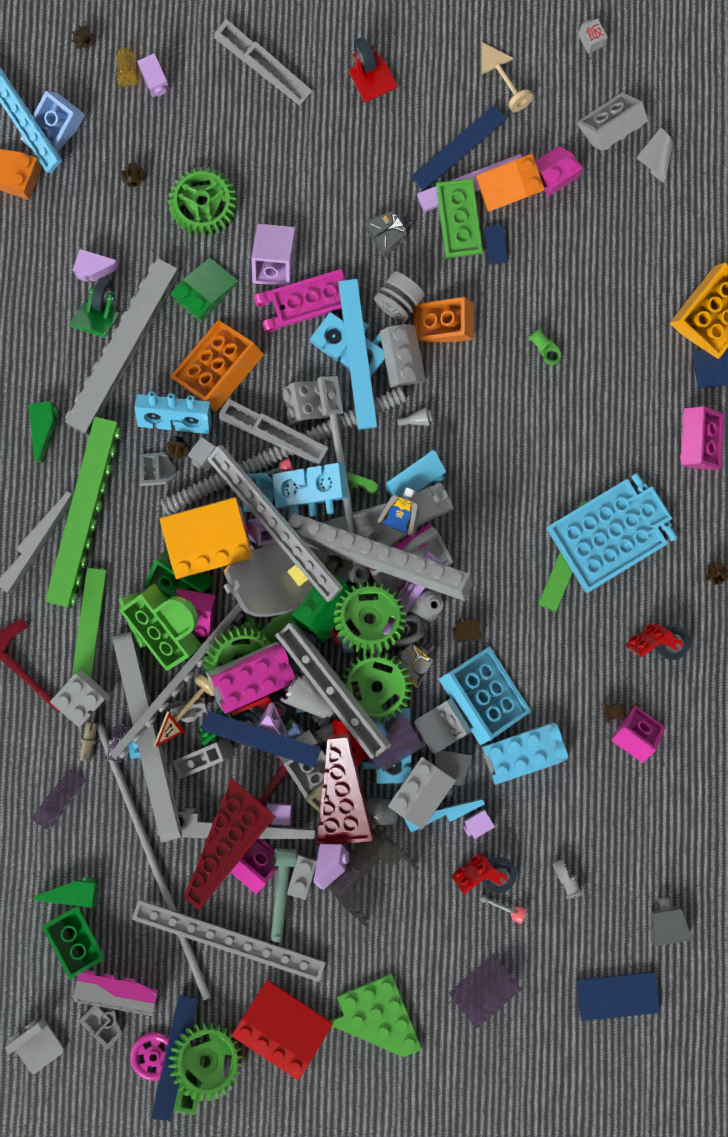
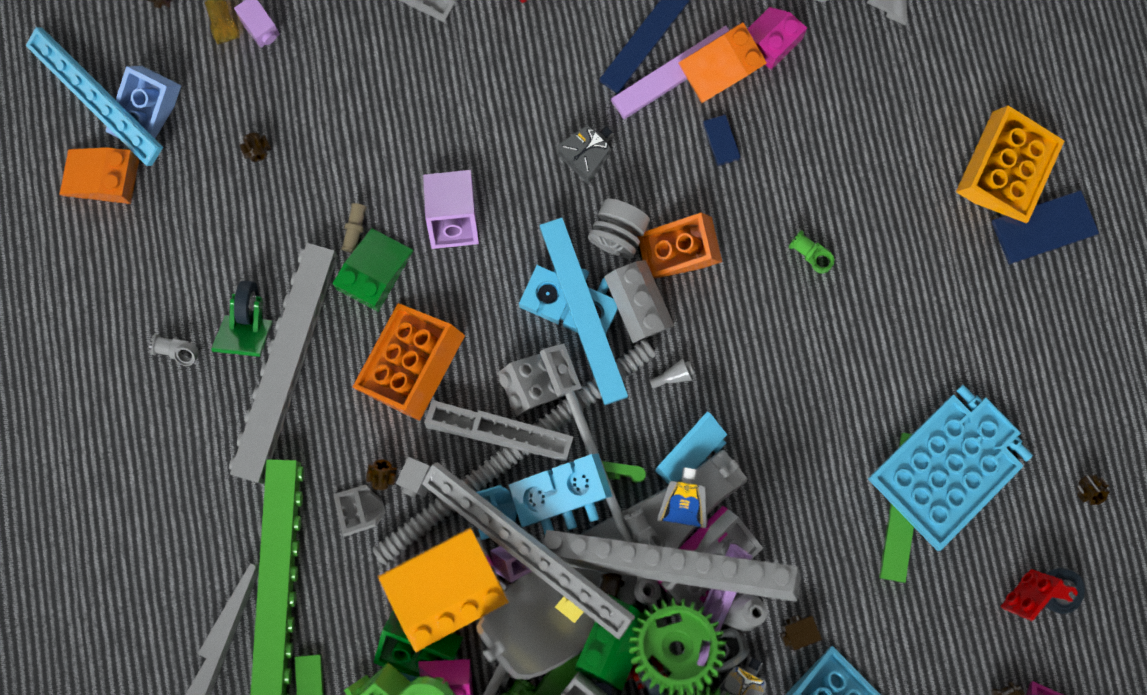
camera: 15 degrees left, 5 degrees down
(40, 318) = (173, 349): none -> light grey connector
(42, 425) = (201, 482): green slope -> none
(93, 266) = (227, 269): lavender slope -> none
(185, 414) = (355, 434): medium azure piece -> none
(196, 254) = (354, 227): none -> dark tan pin
(204, 215) = (354, 177): bright green gear -> none
(284, 466) = (521, 471): coral hinge -> none
(302, 300) = (499, 257): dark pink hinge -> none
(459, 218) = (669, 117): bright green tile -> none
(702, 438) = (1031, 325): dark pink slope -> none

